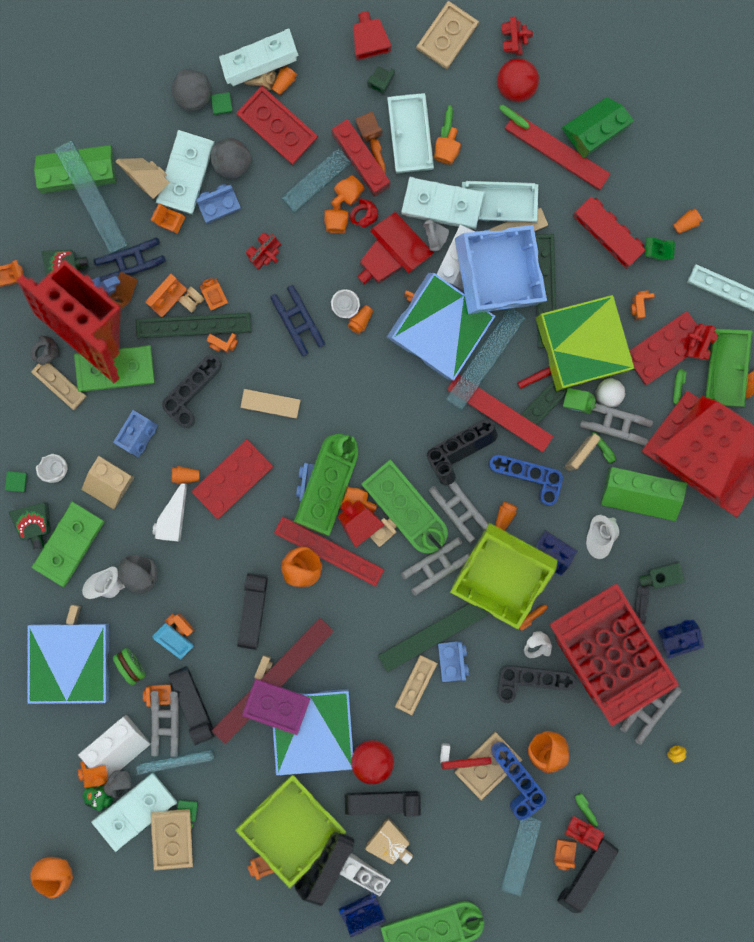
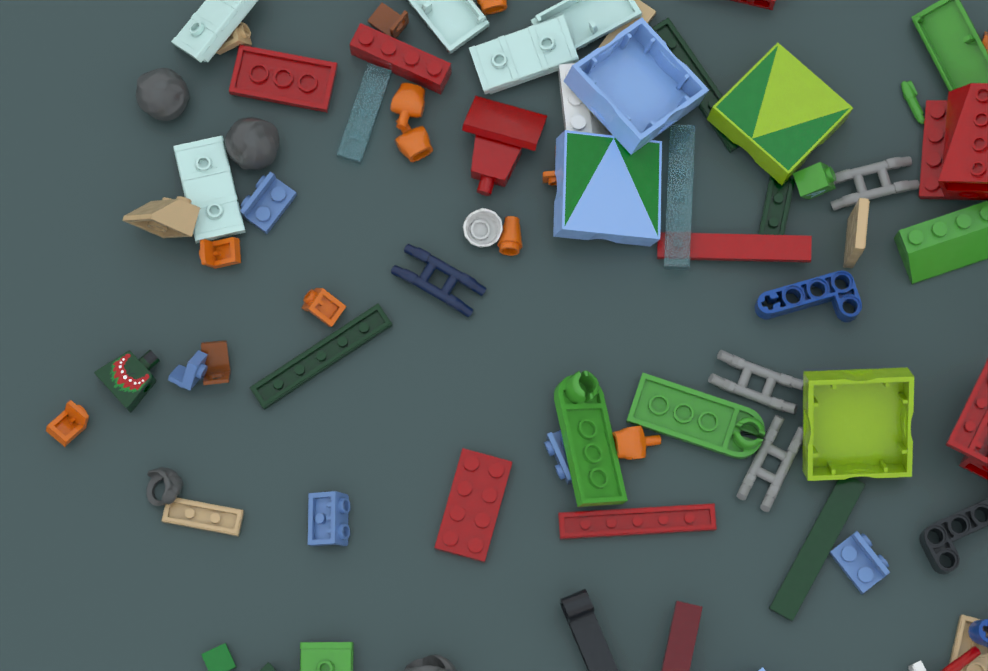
camera: 25 degrees left, 10 degrees down
(52, 468) = (254, 617): white hair -> none
(53, 177) = (79, 259): bright green slope -> none
(78, 315) = (183, 415): red wedge -> none
(91, 196) = (117, 276): clear light blue tile -> none
(107, 482) = (328, 596): tan slope -> none
(133, 366) = (259, 458): bright green container -> none
(136, 251) = (219, 323): dark blue piece -> none
(166, 295) = (270, 339): orange bracket -> none
(171, 519) = (430, 593): white slope -> none
(184, 475) = (414, 533): orange cone -> none
(188, 303) = (301, 327): tan wheel -> none
(195, 388) = (366, 425): black beam -> none
(218, 344) = (364, 359): orange bracket -> none
(221, 103) = (205, 91): green tile -> none
(266, 252) = (356, 225): red hips -> none
(270, 403) = (465, 392): tan tile -> none
(284, 79) = (261, 23): orange cone -> none
(301, 567) = (618, 556): orange piece -> none
(358, 521) = (651, 464): red torso -> none
(371, 215) = (451, 120): red piece -> none
(376, 151) = (411, 39): orange piece -> none
(384, 533) = (685, 460): tan bracket -> none
(416, 685) = (834, 616): tan tile -> none
(436, 234) = (537, 93): light grey piece -> none
(487, 434) = (729, 283): black beam -> none
(505, 515) = (813, 355): orange cone -> none
(533, 615) = (917, 454): orange piece -> none
(535, 377) = (748, 185): red piece -> none
(538, 638) = (939, 478): white piece -> none
(557, 549) = (898, 359): clear blue bracket -> none
(601, 536) = (936, 316): white piece -> none
(606, 451) = (881, 220): bright green piece -> none
(610, 393) = (842, 152): white hair -> none
(637, 308) = (812, 40): orange bracket -> none
(663, 349) = (874, 67): red plate -> none
(700, 341) = (907, 37): red hips -> none

